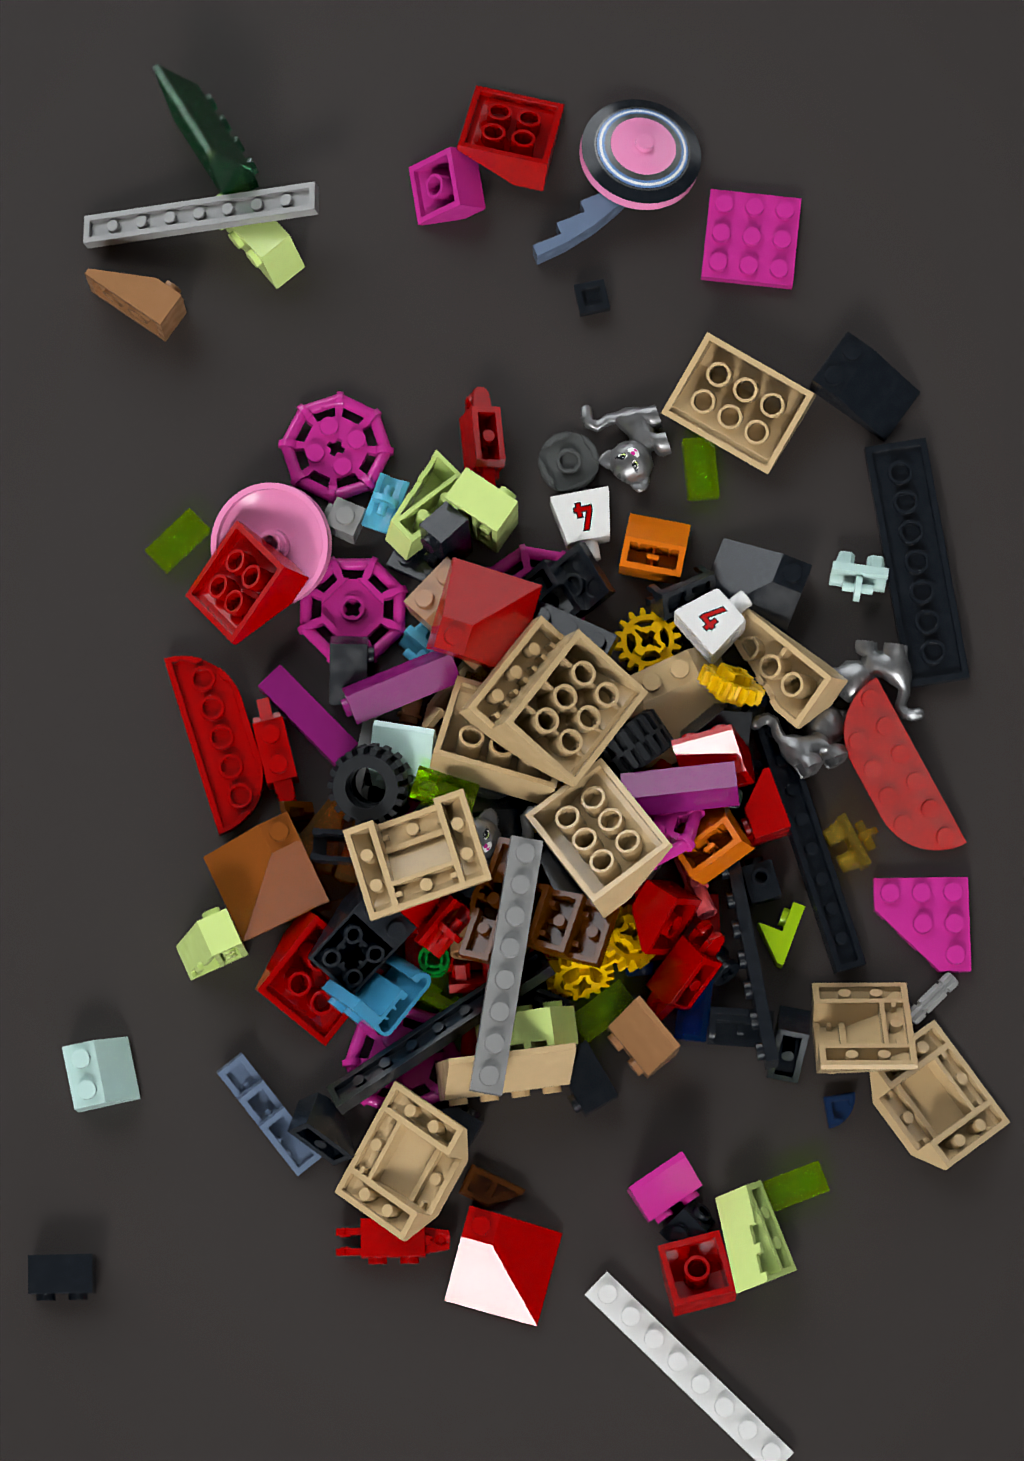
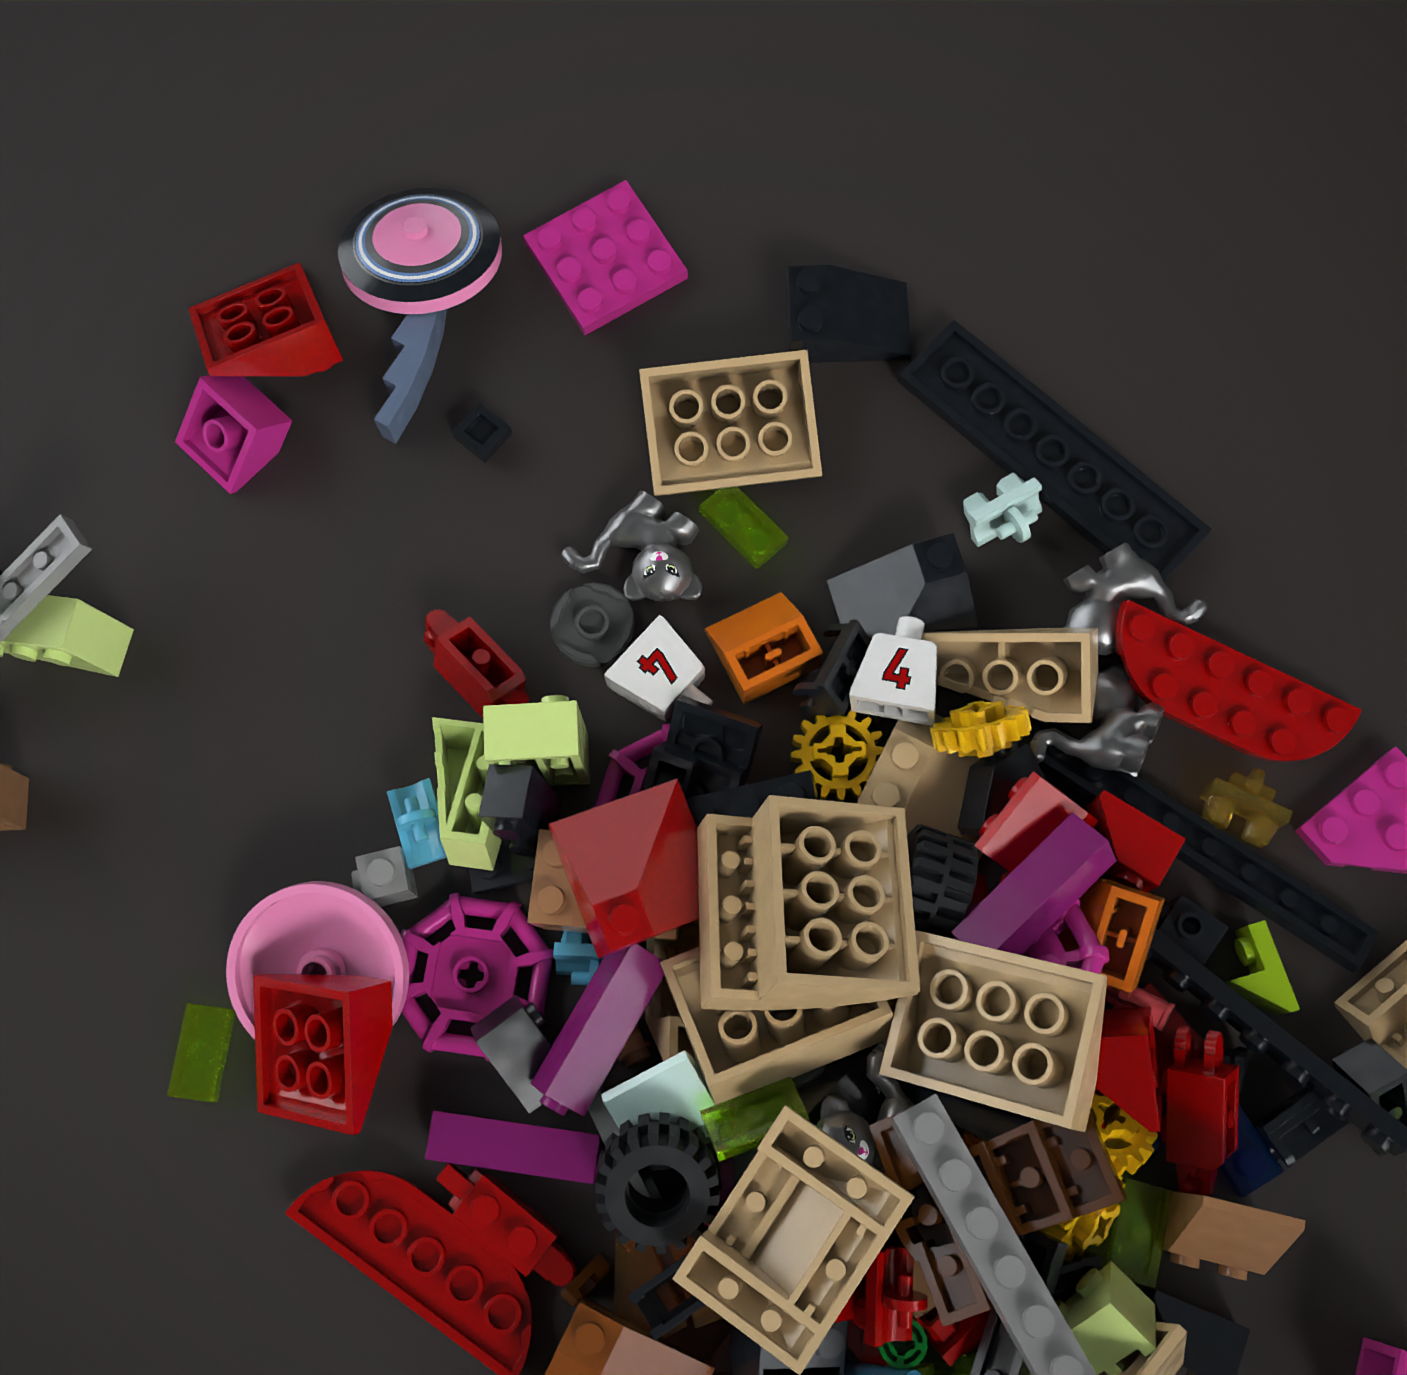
camera: 35 degrees left, 5 degrees down
(330, 431) = (294, 788): dark pink plate -> none

